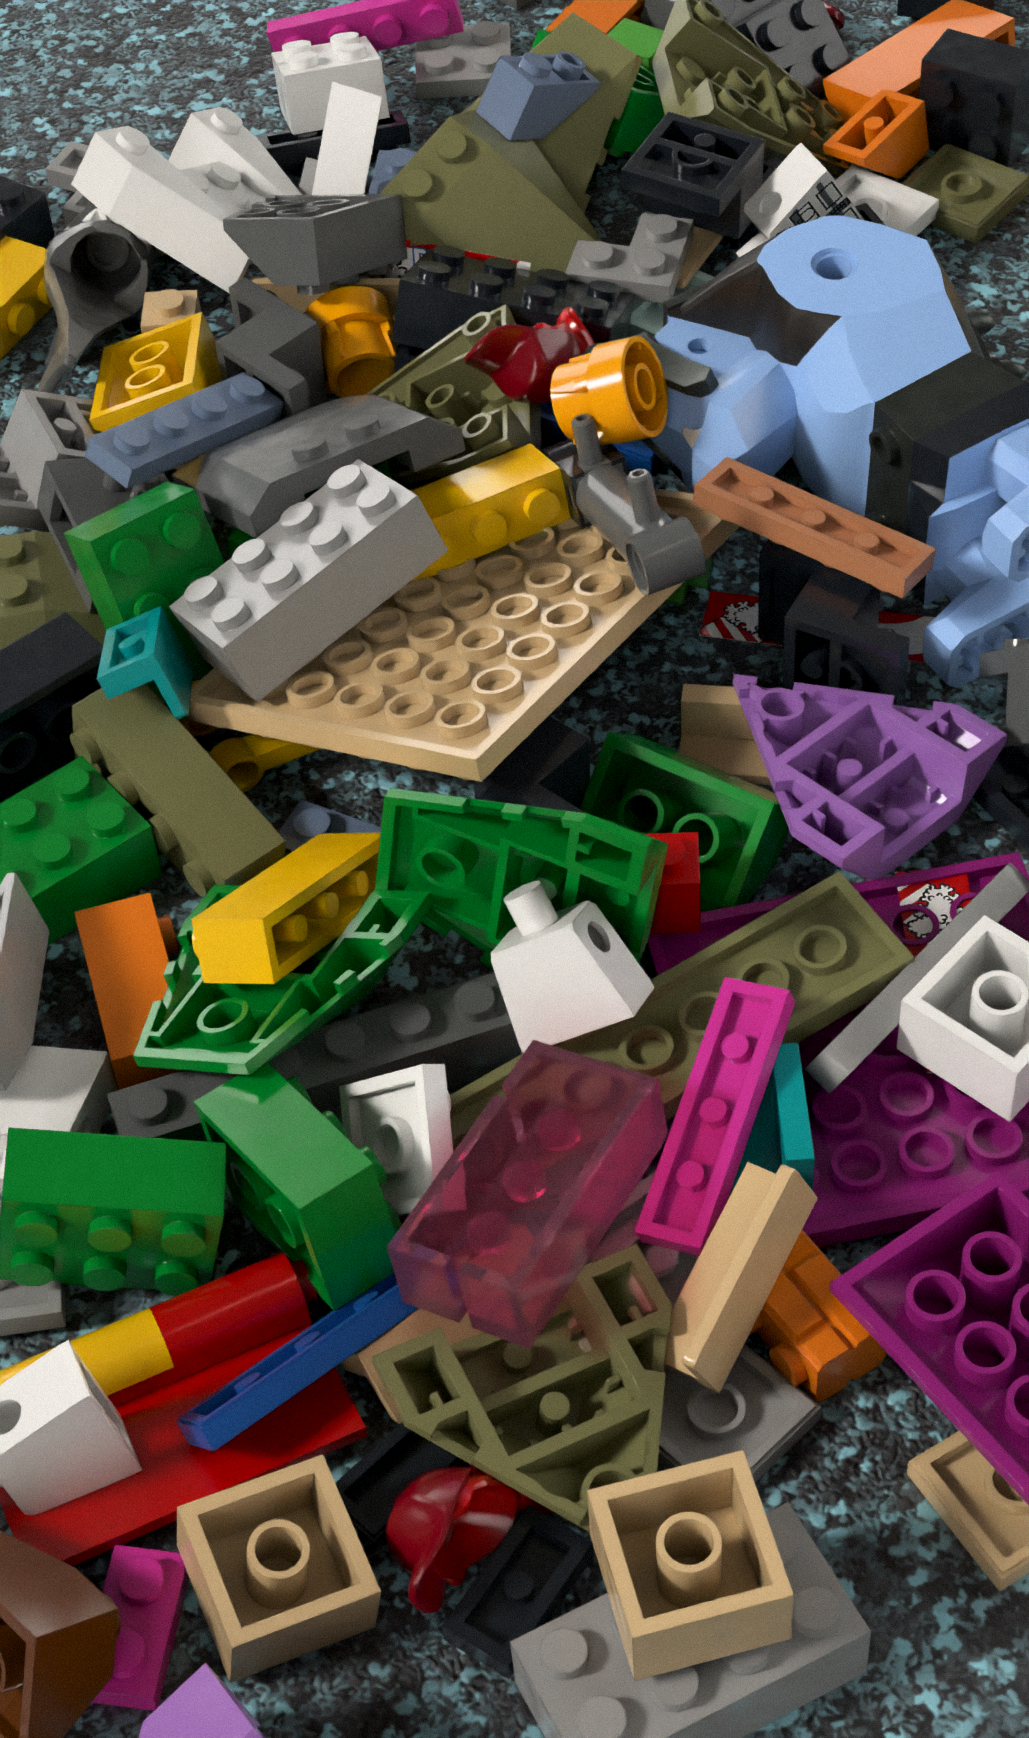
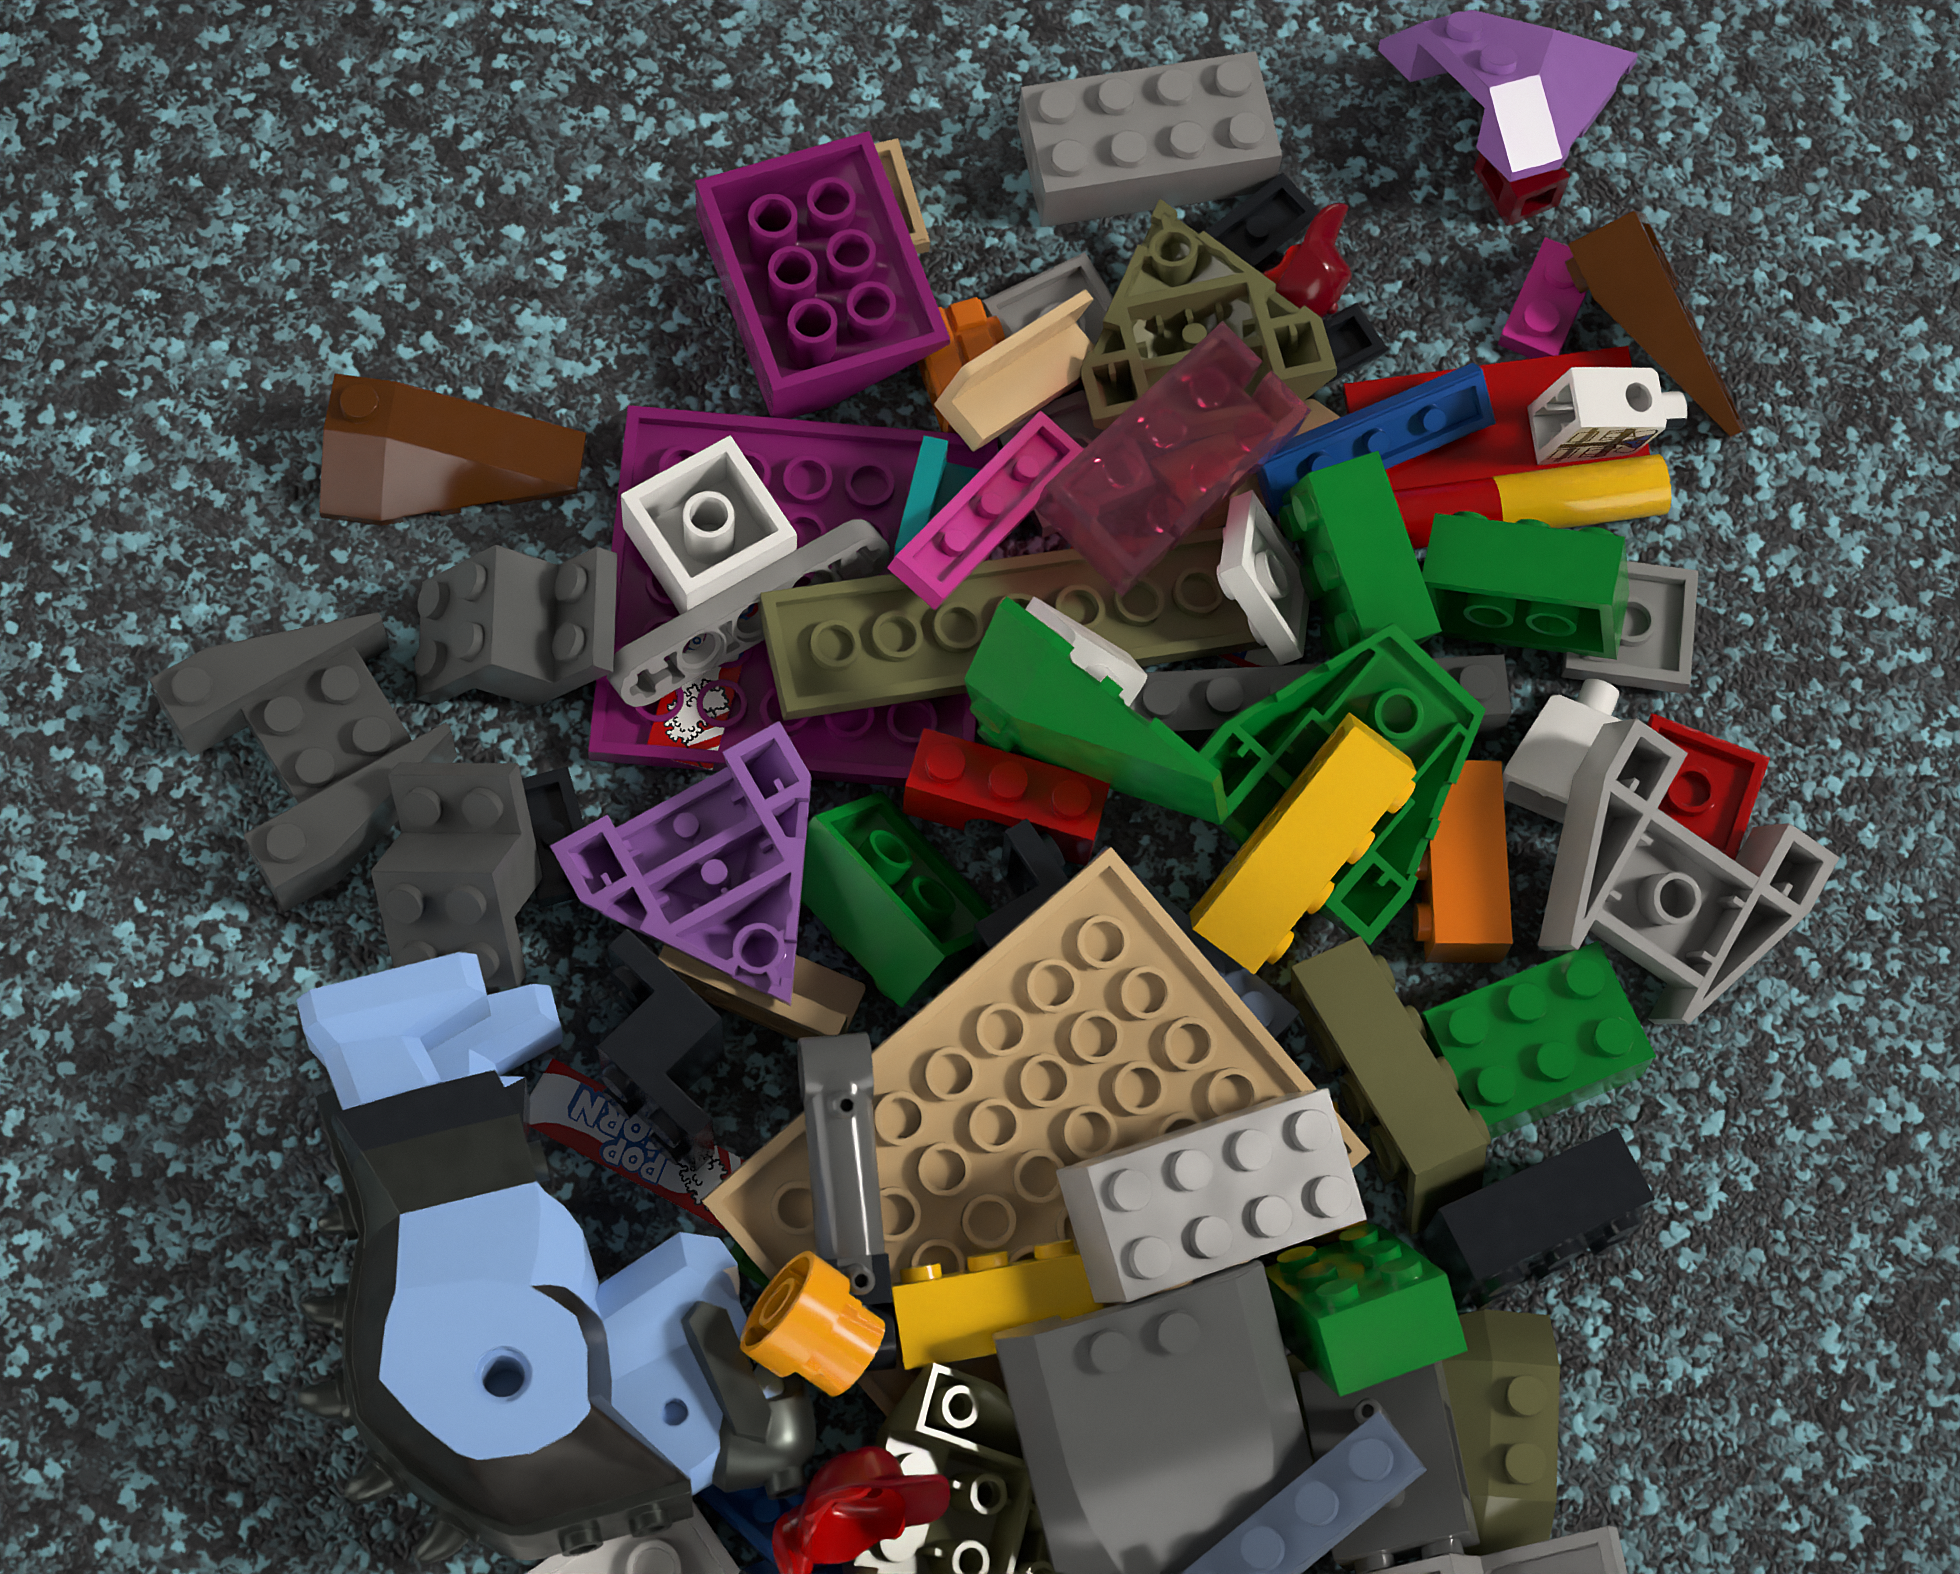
camera: 175 degrees left, 20 degrees up
(144, 652) = (1404, 1168): teal panel -> none
(277, 1567) = (1439, 278): tan brick -> none
(690, 1565) = (1149, 113): tan brick -> none
(814, 527) = (654, 1101): nougat plate -> none

